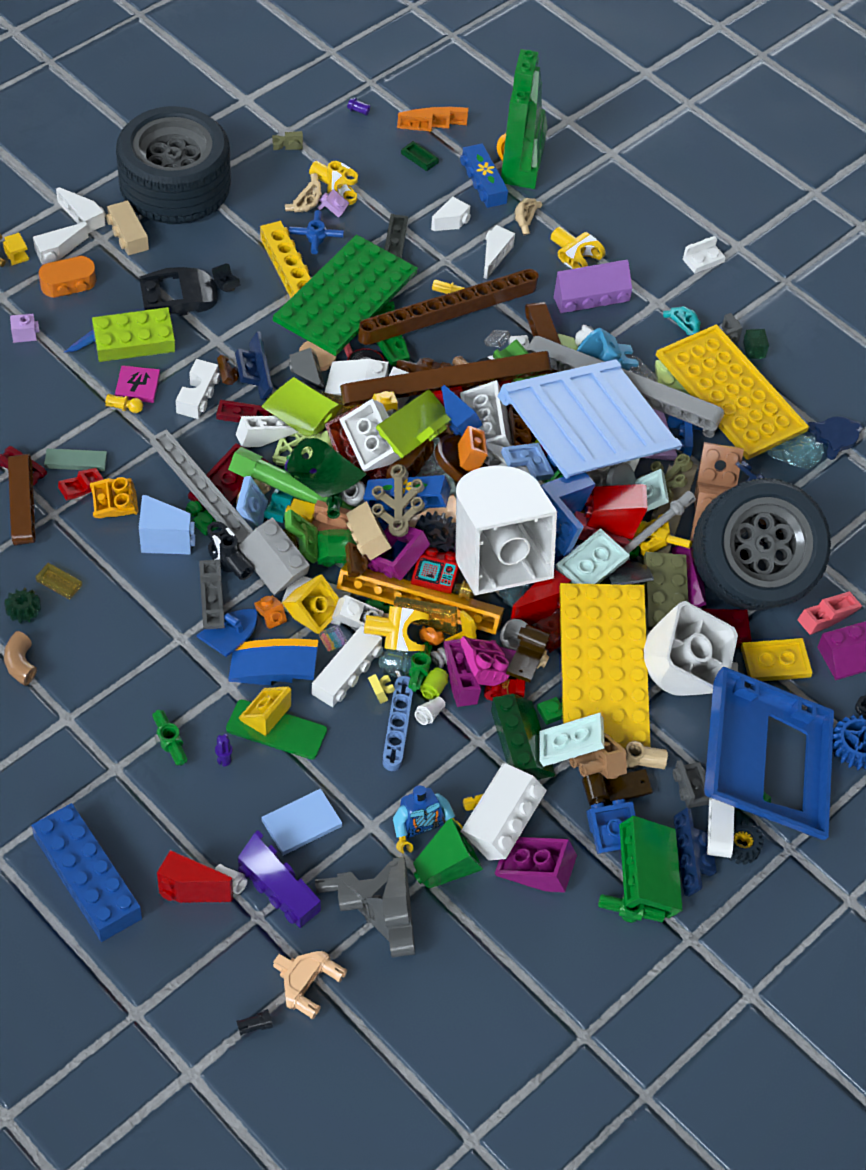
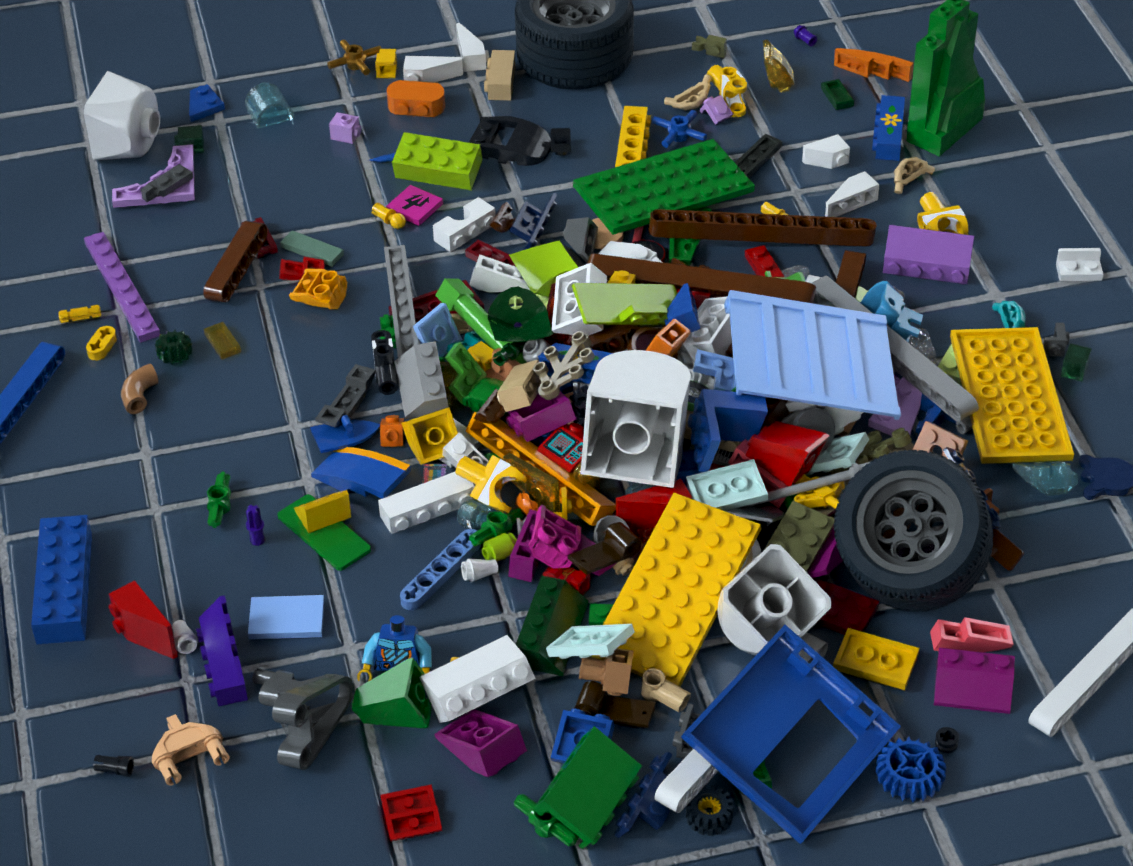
camera: 35 degrees right, 10 degrees down
(165, 528) = (340, 325): light blue slope -> none
(360, 147) = (777, 68): none -> clear yellow slope
(380, 688) = (444, 530): light yellow tile -> none
(469, 341) = (762, 261): none -> red plate
(523, 951) = (411, 813): none -> red slope

